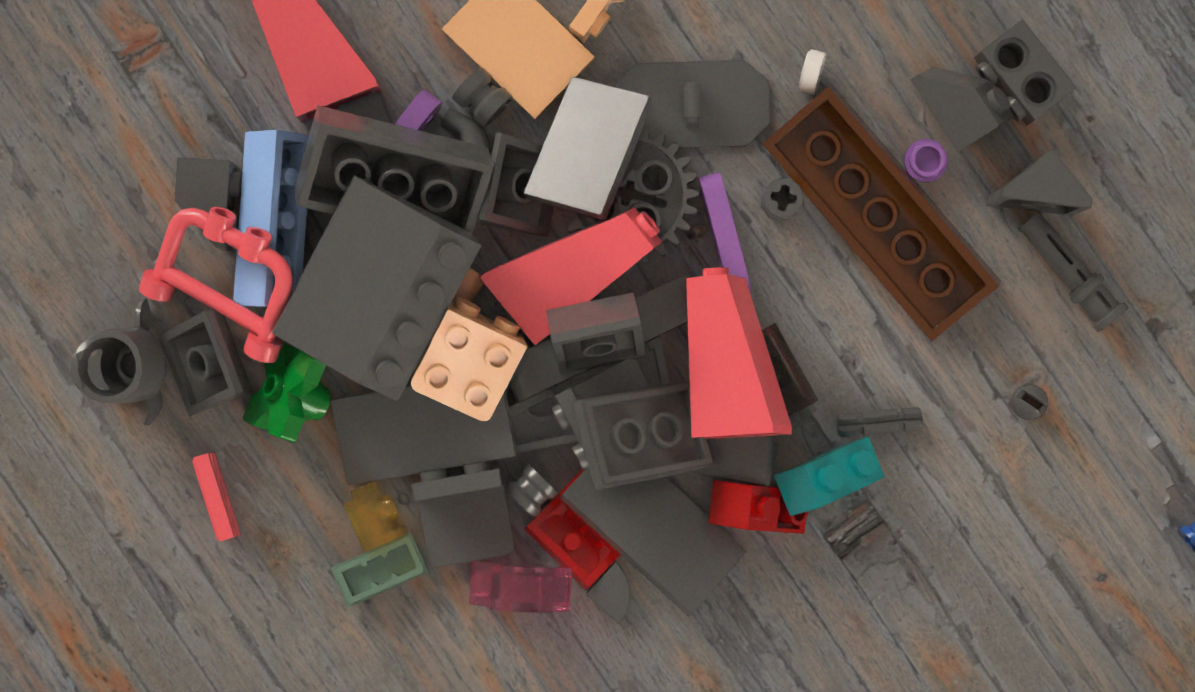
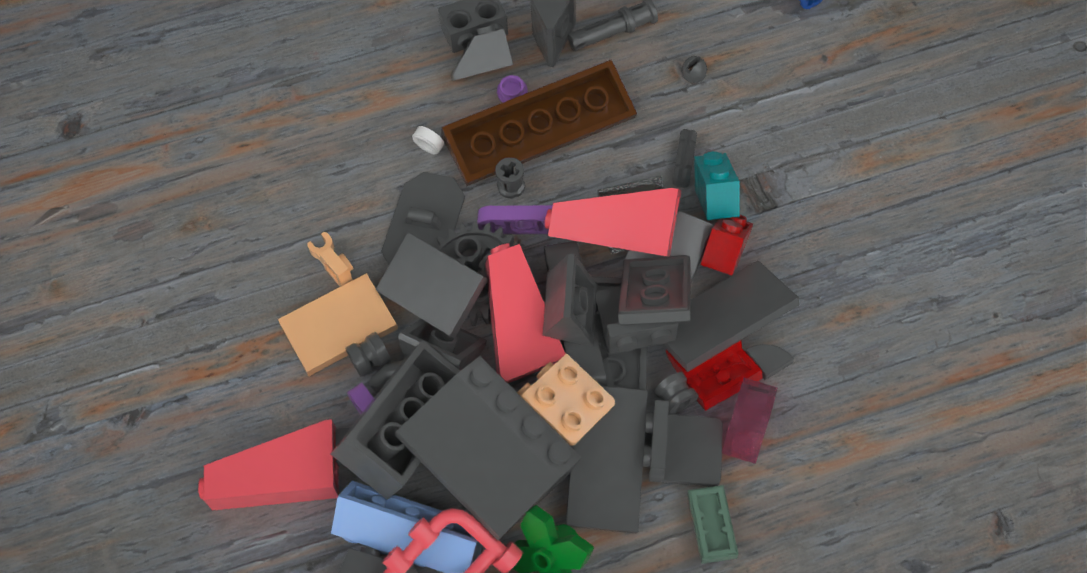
camera: 70 degrees left, 25 degrees down
(373, 517) = (669, 516): clear yellow brick -> none

